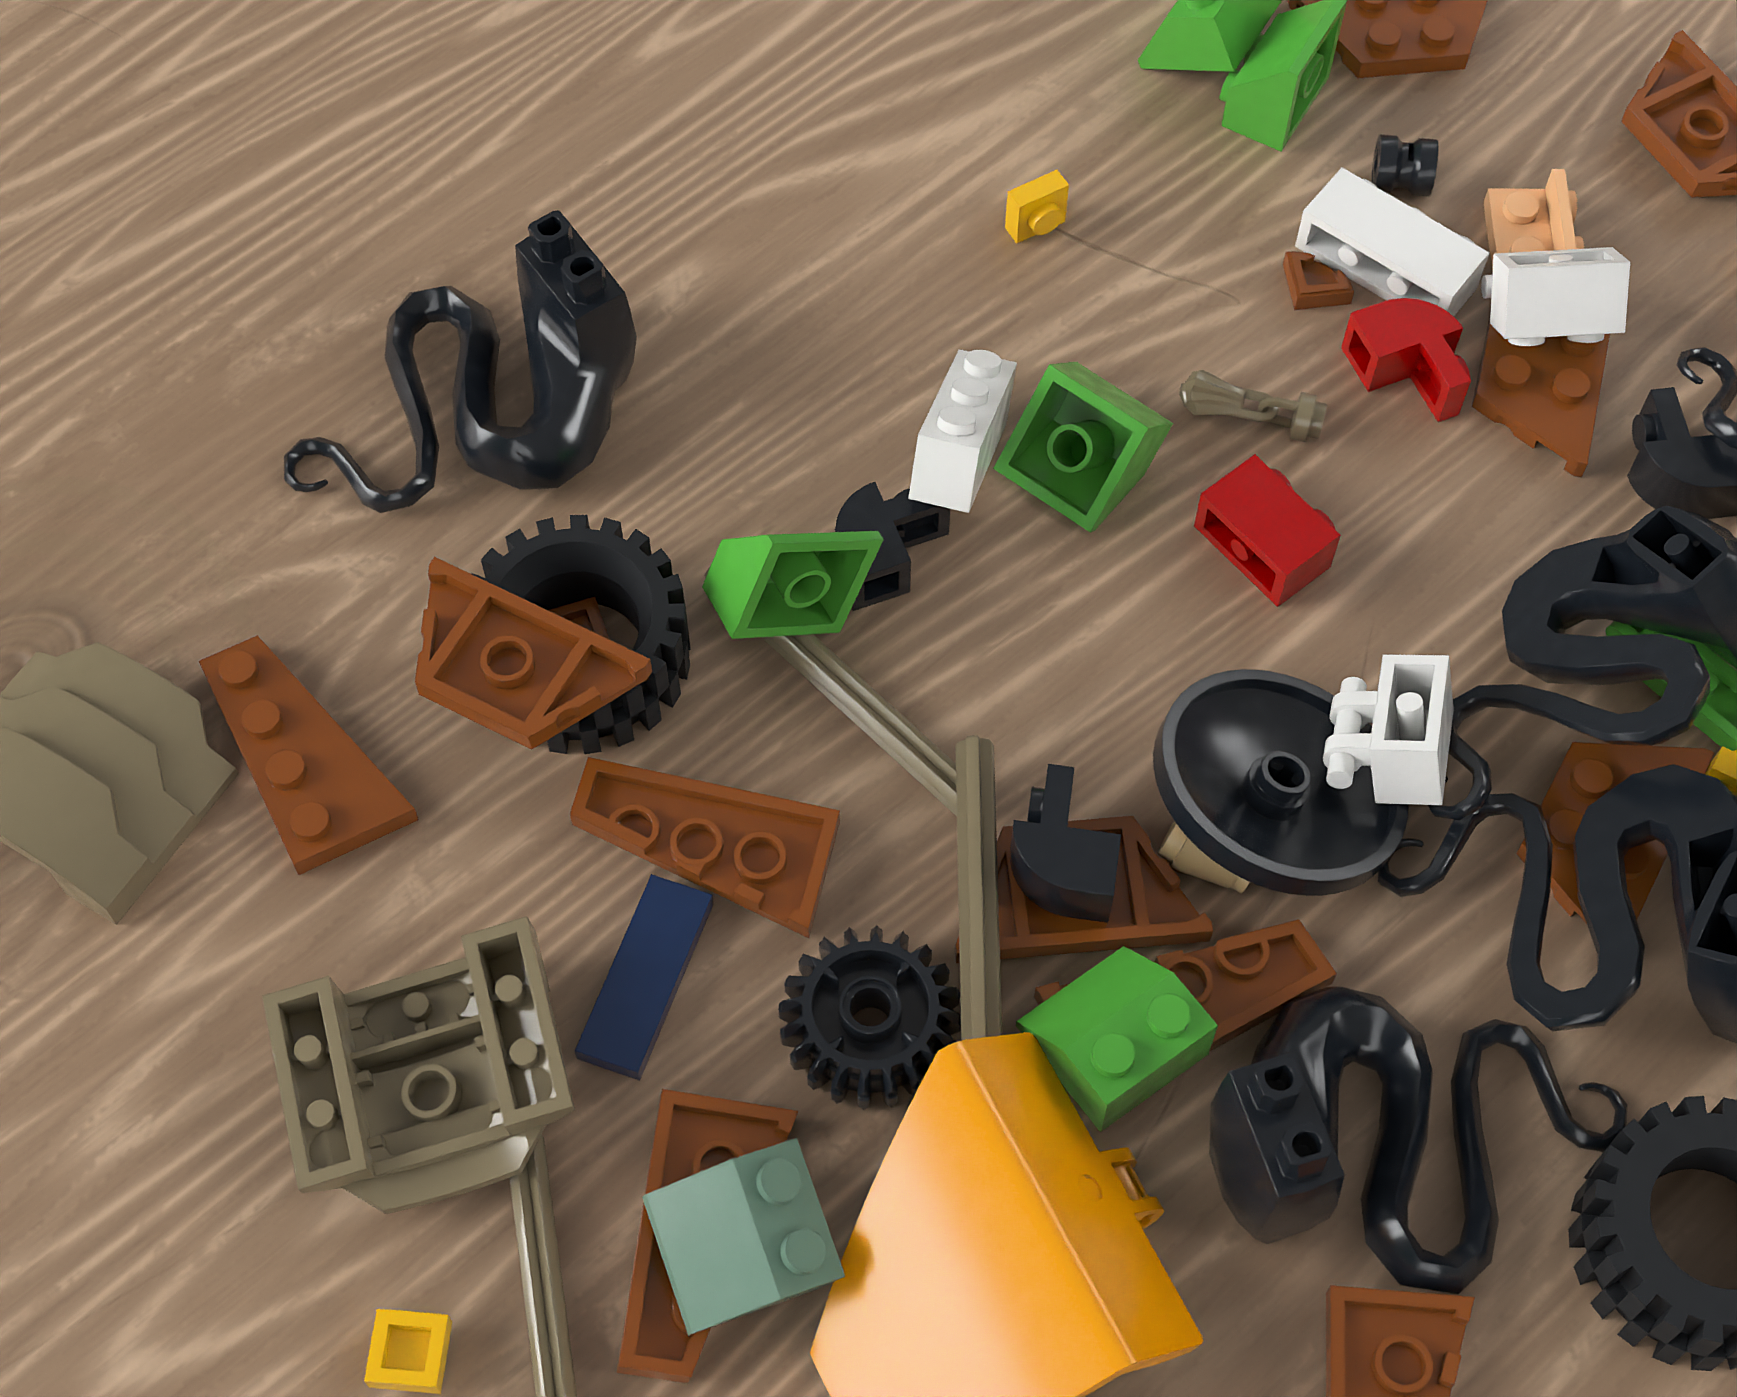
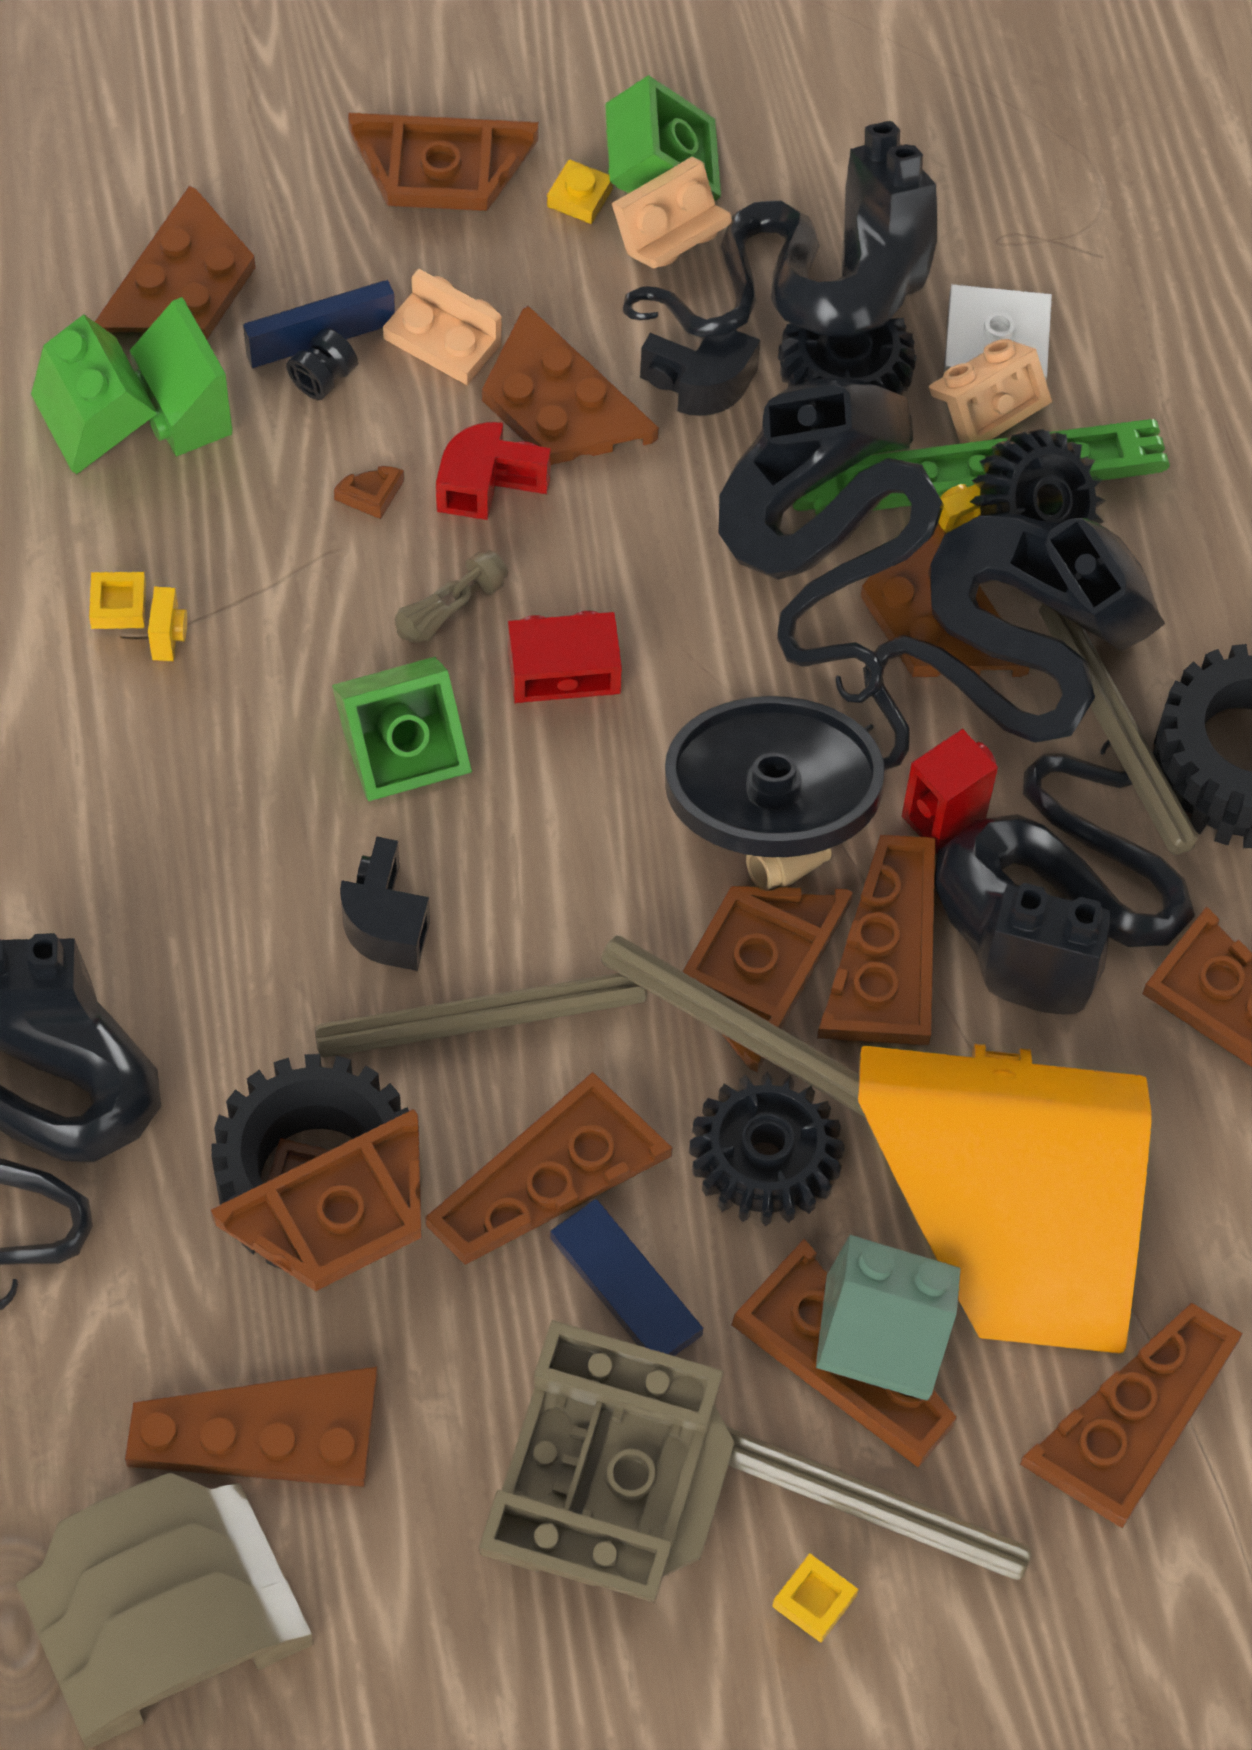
camera: 60 degrees left, 0 degrees up
(789, 581) = (388, 985): bright green slope -> none
(962, 430) = (347, 792): white brick -> none
(1032, 157) = (117, 600): none -> yellow plate
(1059, 865) = (742, 953): black brick -> none
(1120, 1034) = (895, 991): bright green slope -> none
(1389, 245) = (387, 421): white brick -> none
(1398, 948) = (949, 788): none -> red brick
(1408, 730) = (799, 669): white brick -> none
(1462, 146) = (292, 330): none -> dark blue tile
(1558, 294) = (527, 346): white brick -> none
(1604, 1106) = (1127, 739): none -> dark tan axle

